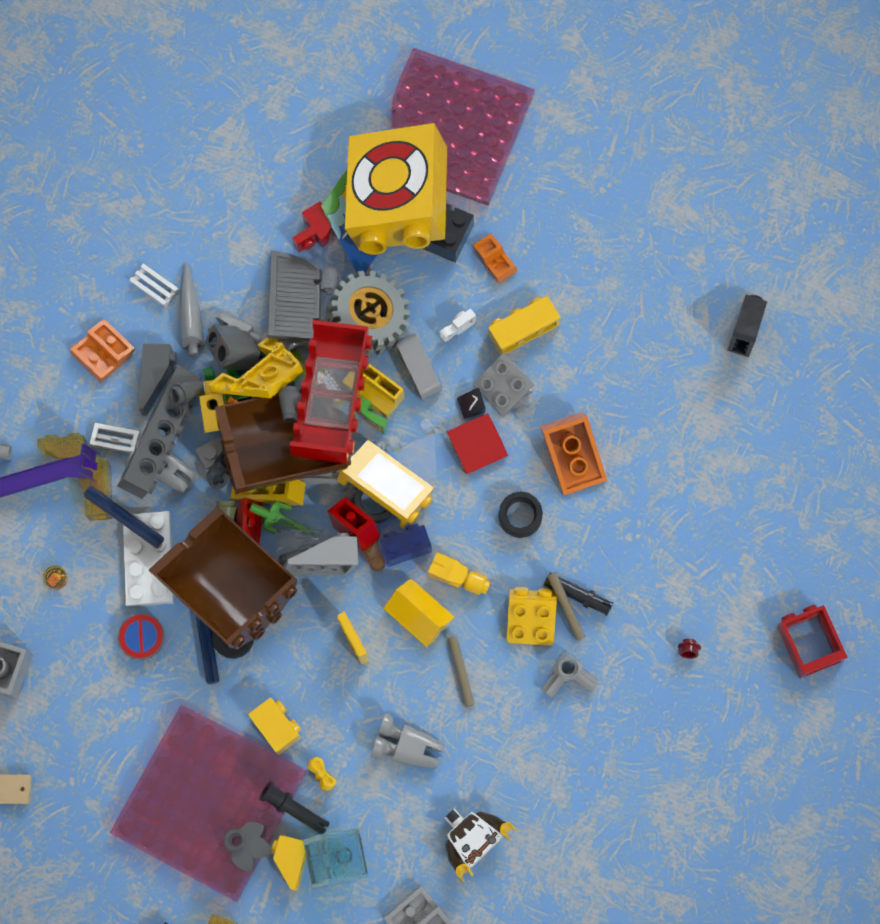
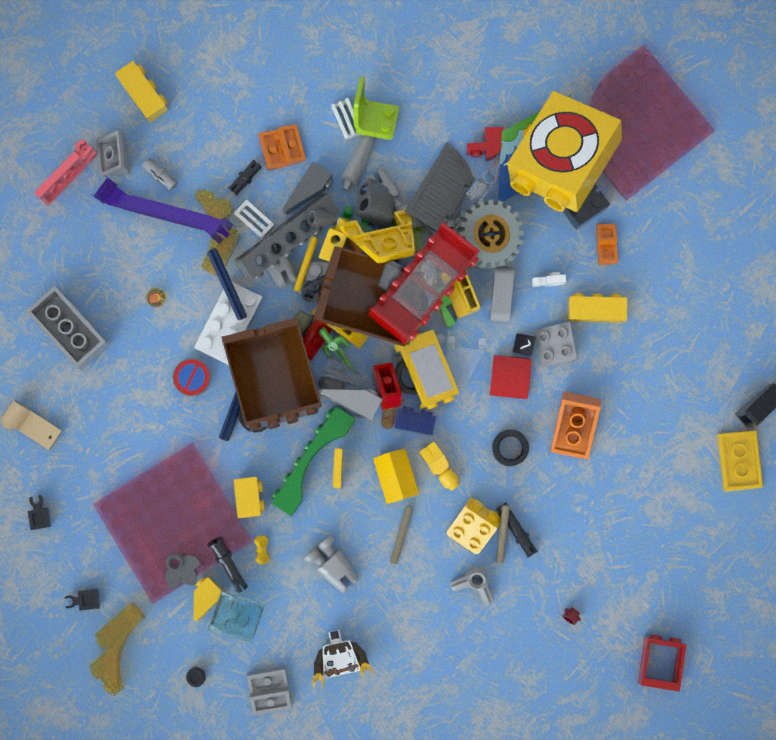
camera: 25 degrees right, 10 degrees up
(57, 882) = (39, 516): none -> black plate
(80, 402) = (245, 177): none -> black pin
(182, 267) = (373, 117): none -> lime piece
(195, 451) = (305, 264): none -> yellow bar
(325, 600) = (335, 427): none -> green arch
(761, 392) = (740, 460): none -> yellow tile

